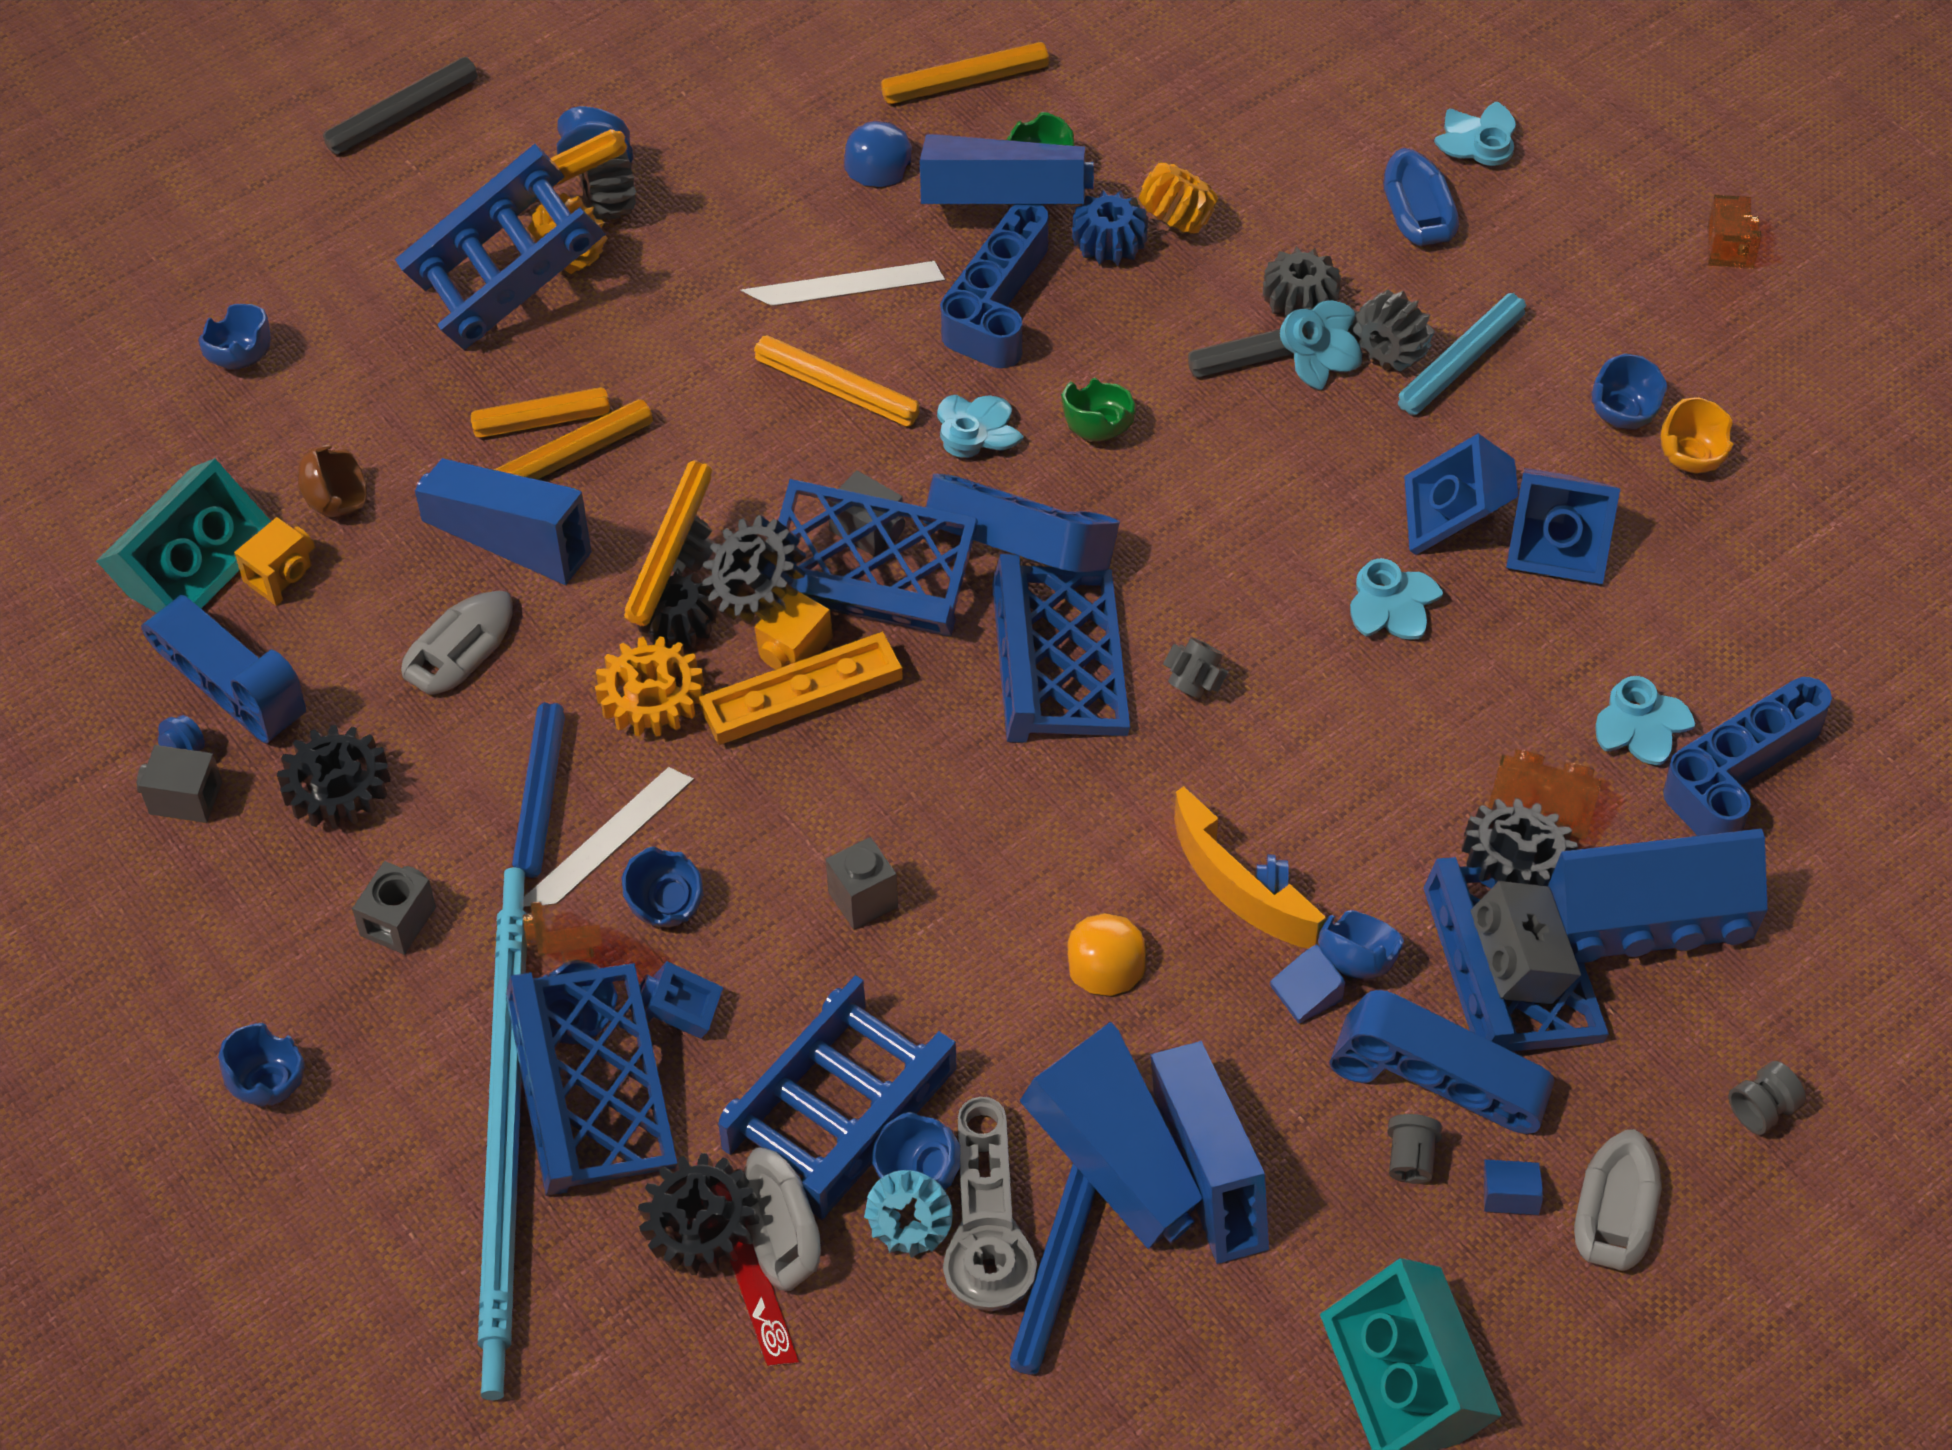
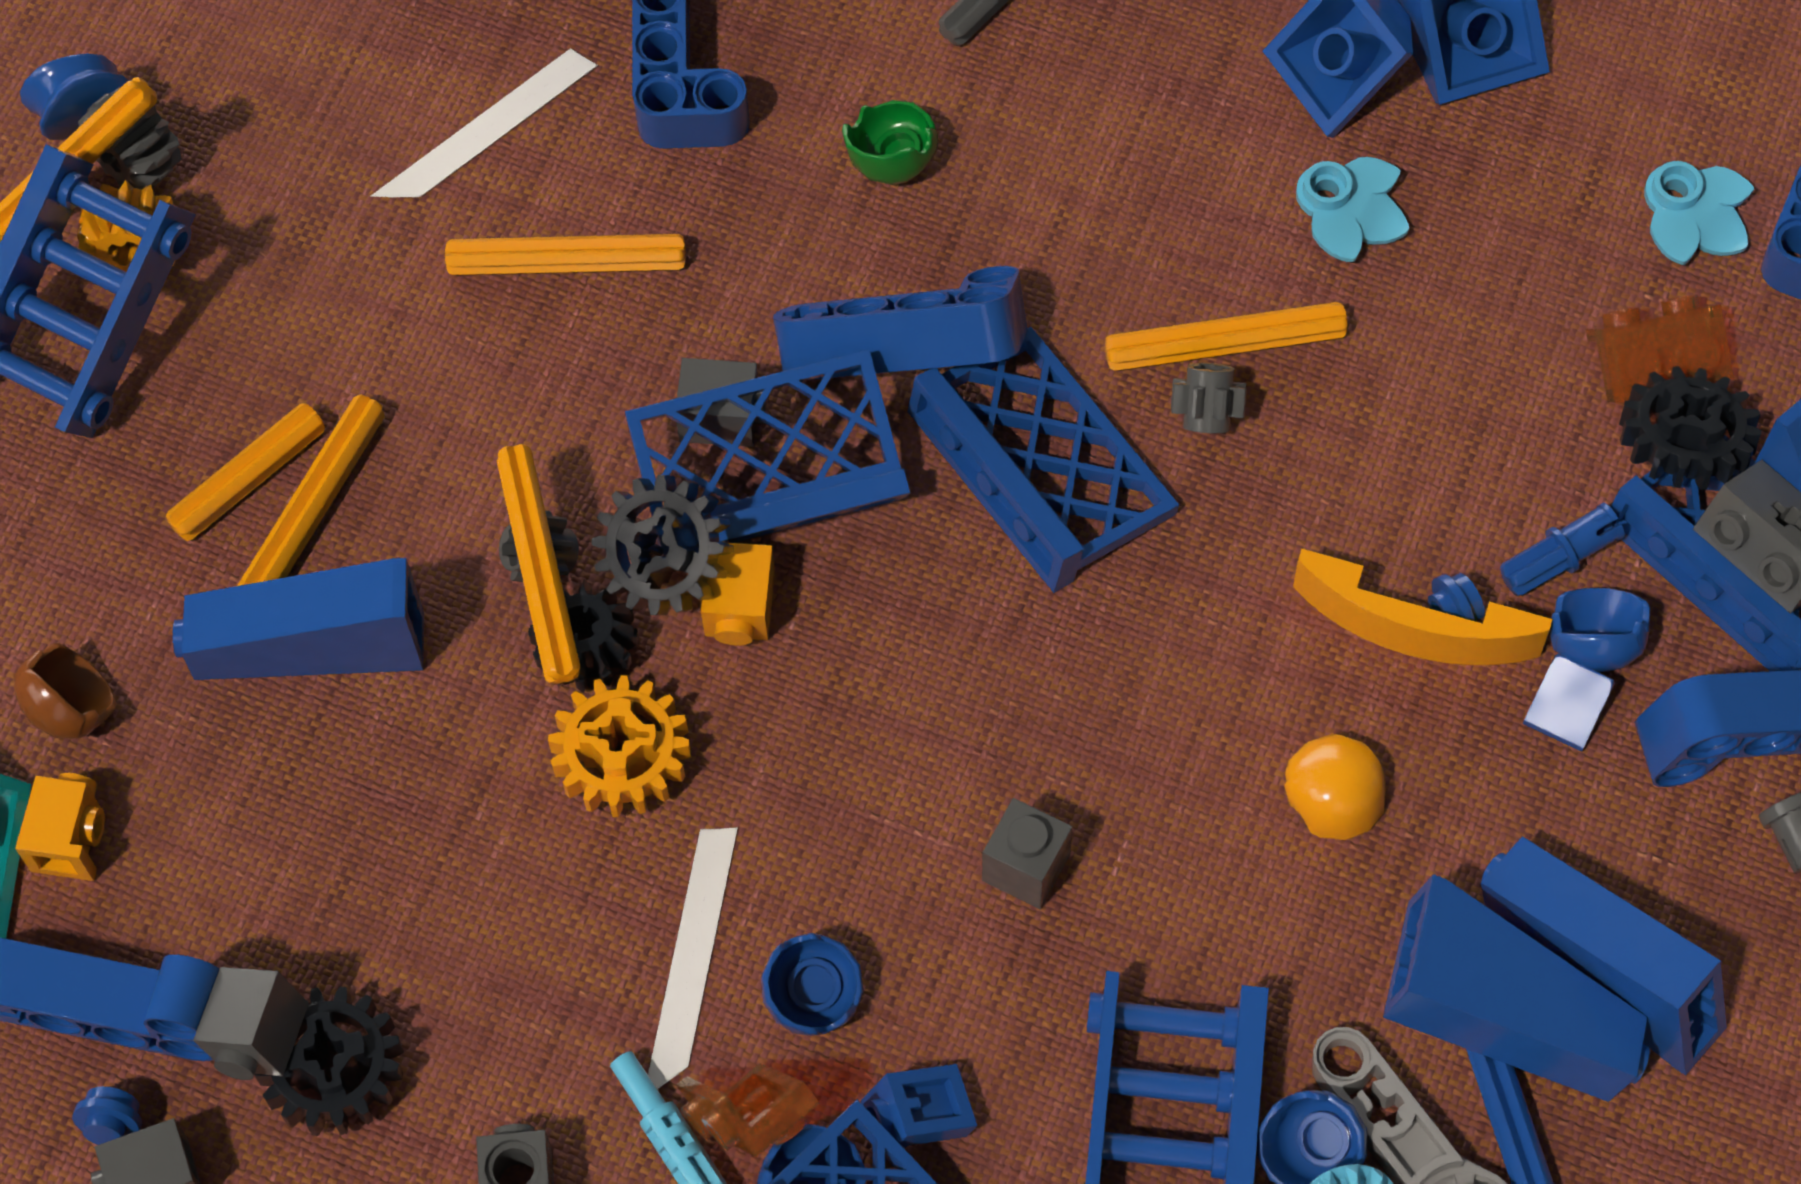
camera: 30 degrees left, 10 degrees up
(295, 719) = (251, 1022): none -> dark grey brick
(458, 642) = (351, 809): light grey piece -> none
(539, 789) = (576, 941): blue axle -> none
(800, 688) = (789, 655): light orange plate -> none
(976, 425) = (761, 228): medium azure plate -> none
(1242, 639) = (1226, 336): none -> light orange axle
(1373, 886) = (1561, 550): none -> blue axle

